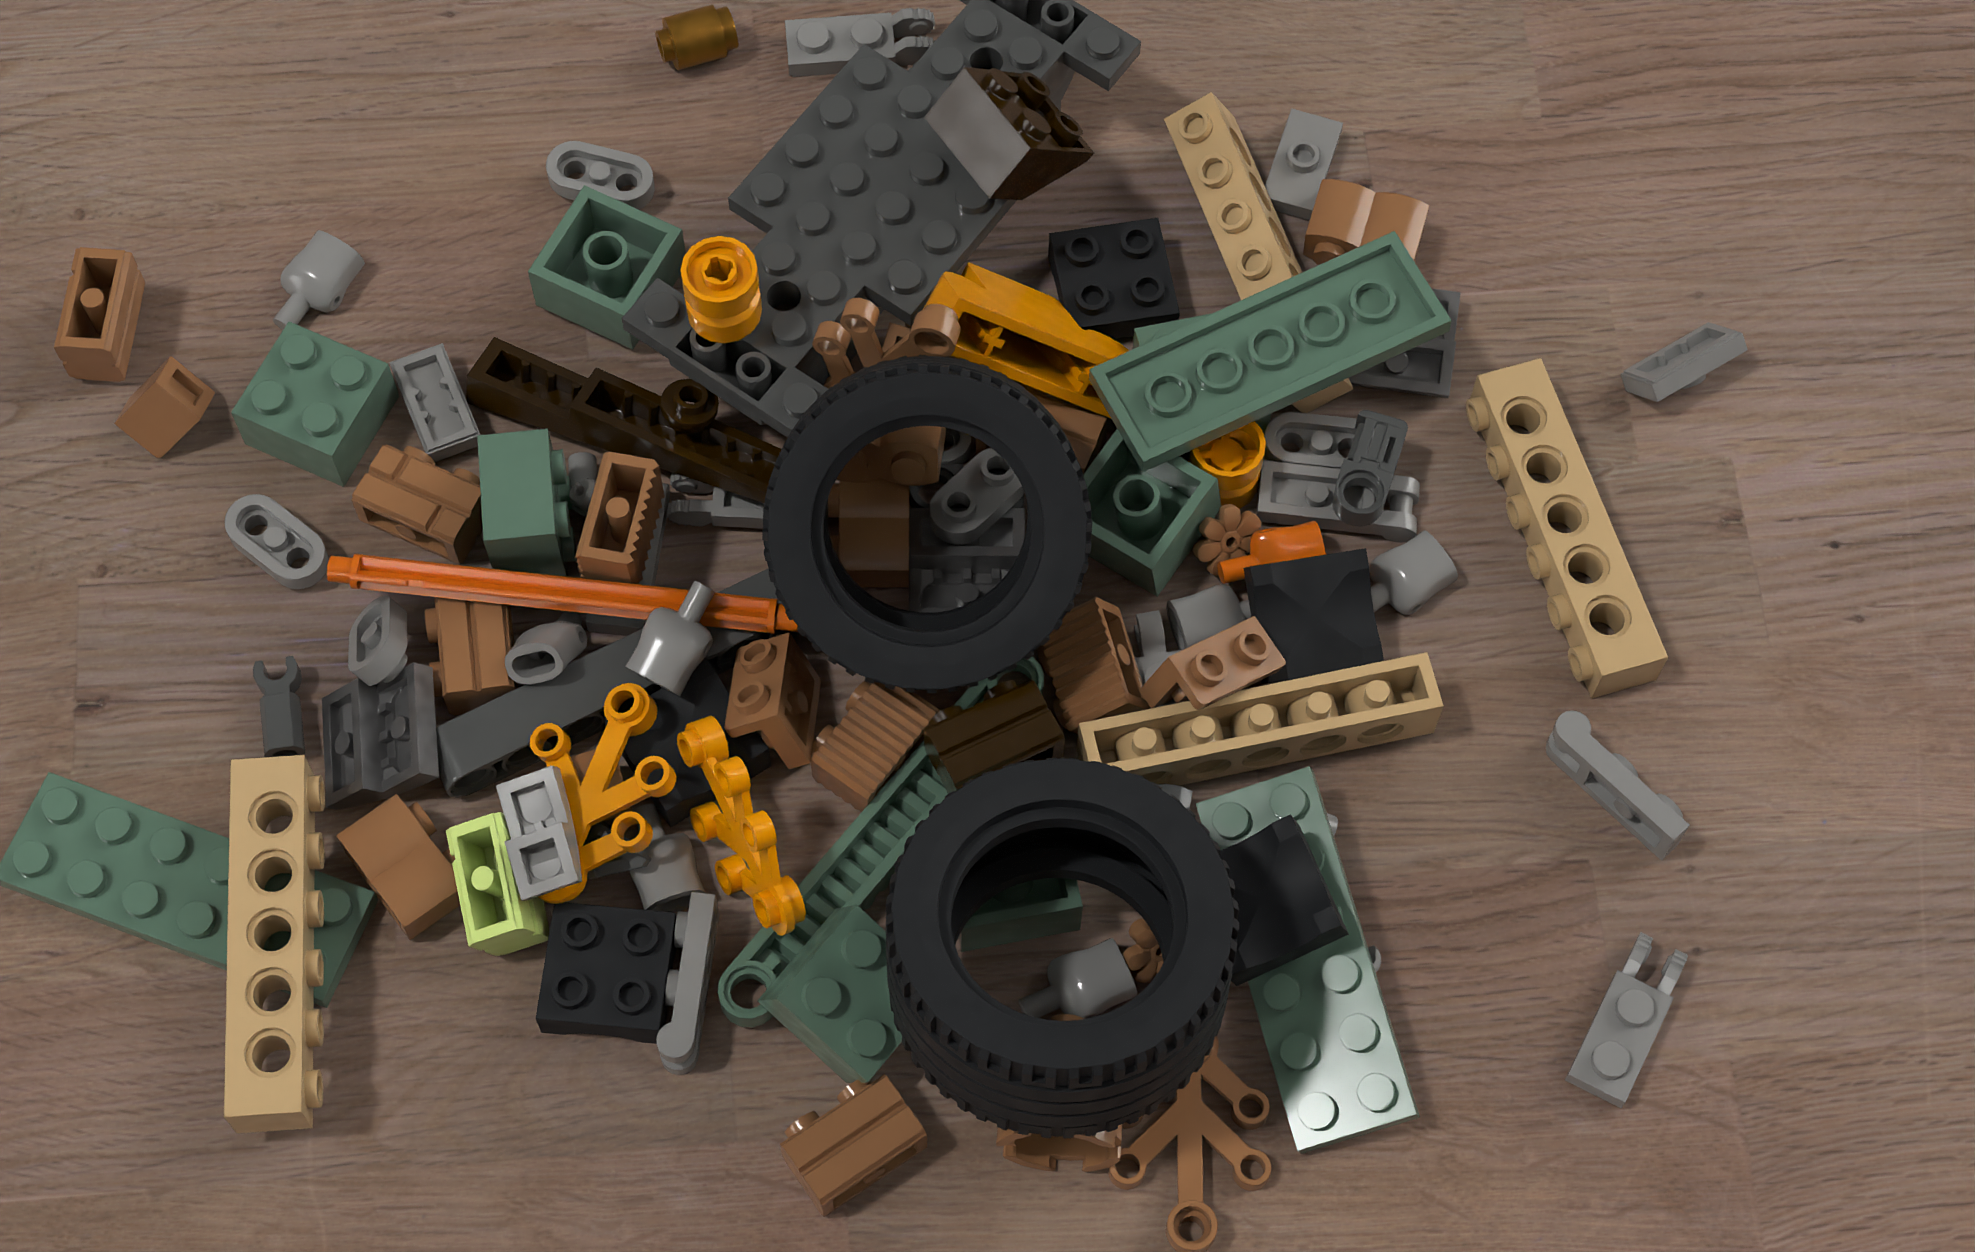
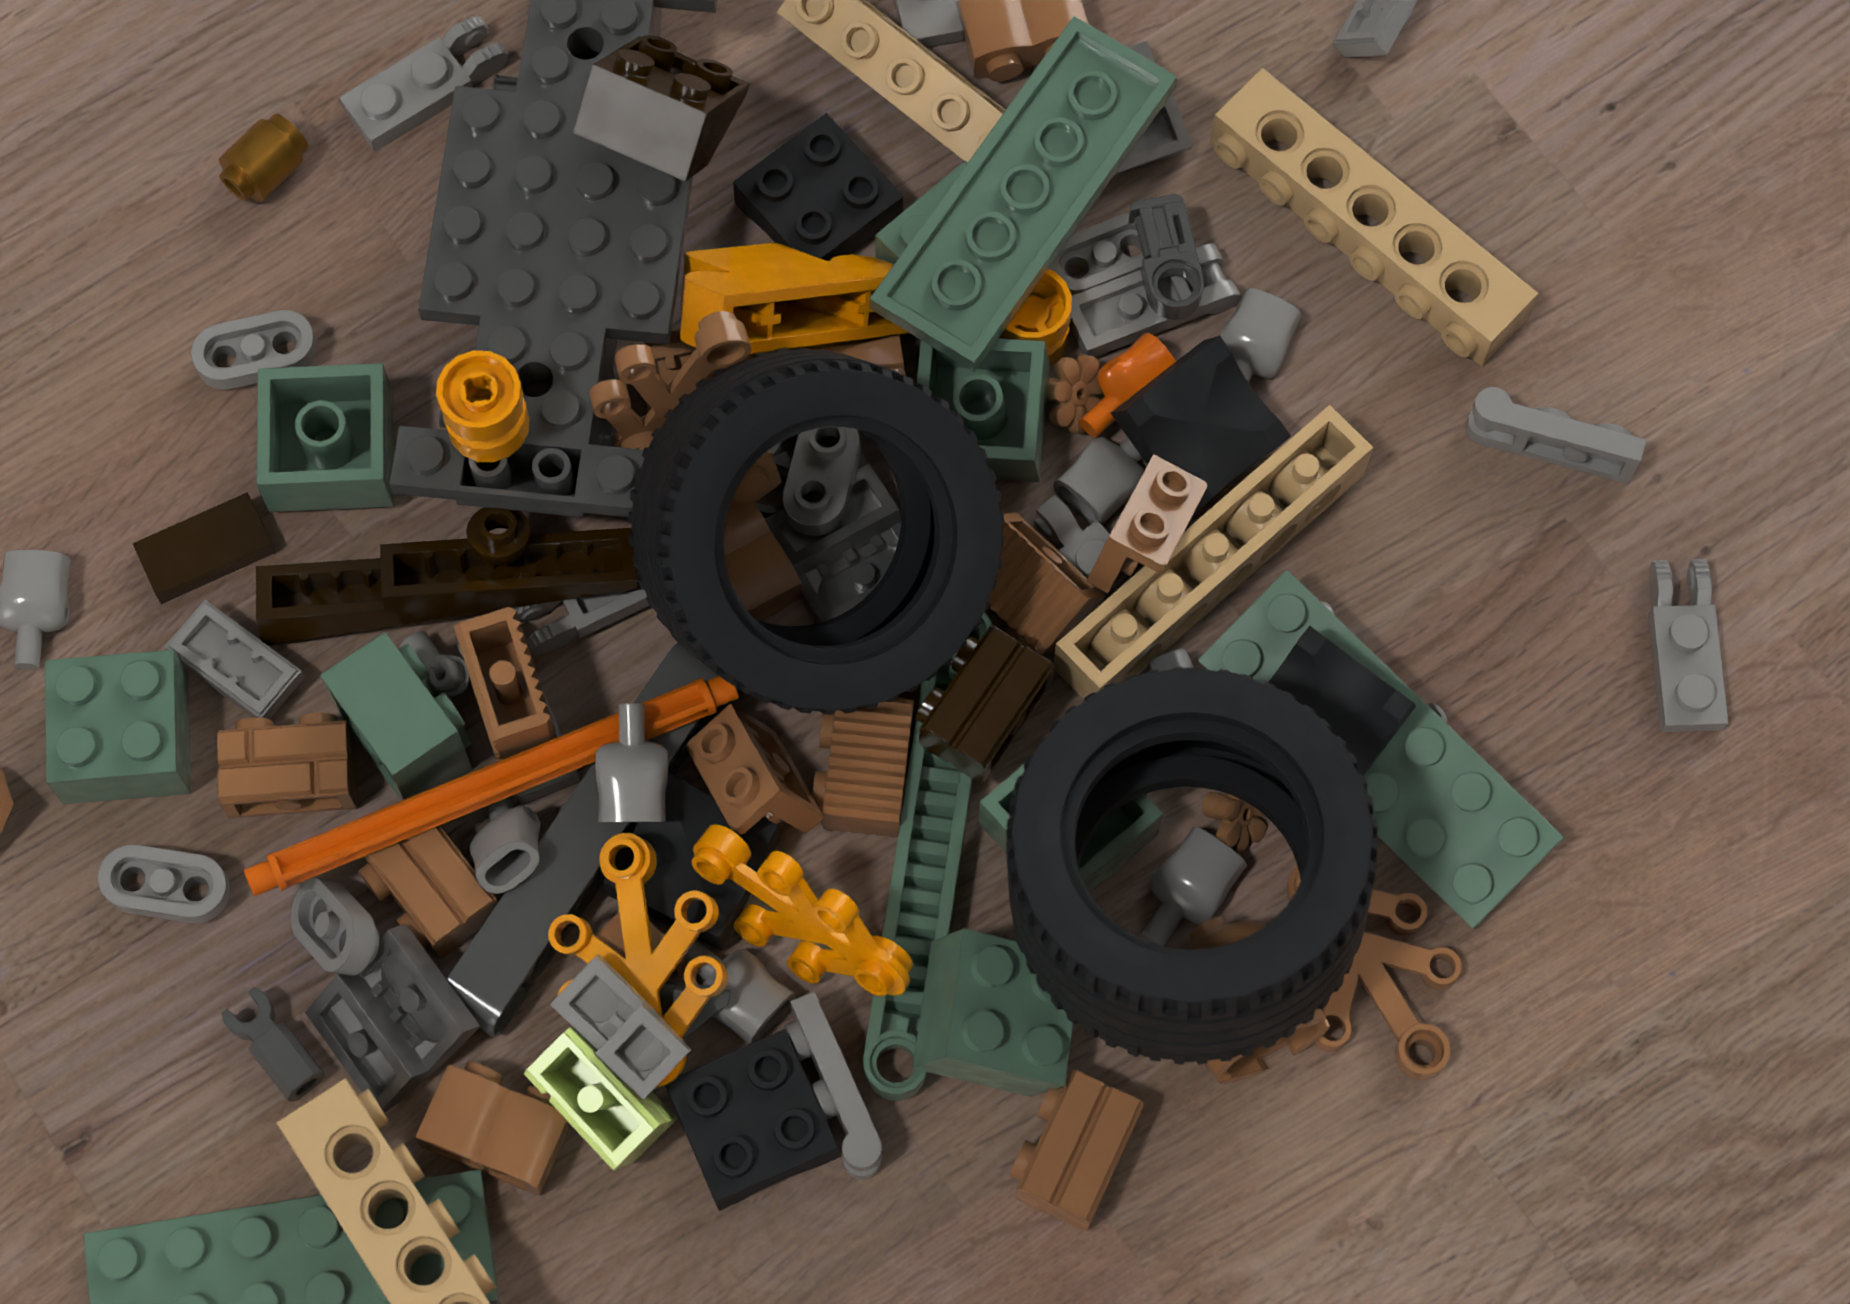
camera: 30 degrees left, 5 degrees up
(469, 306) = (204, 548): none -> dark brown tile

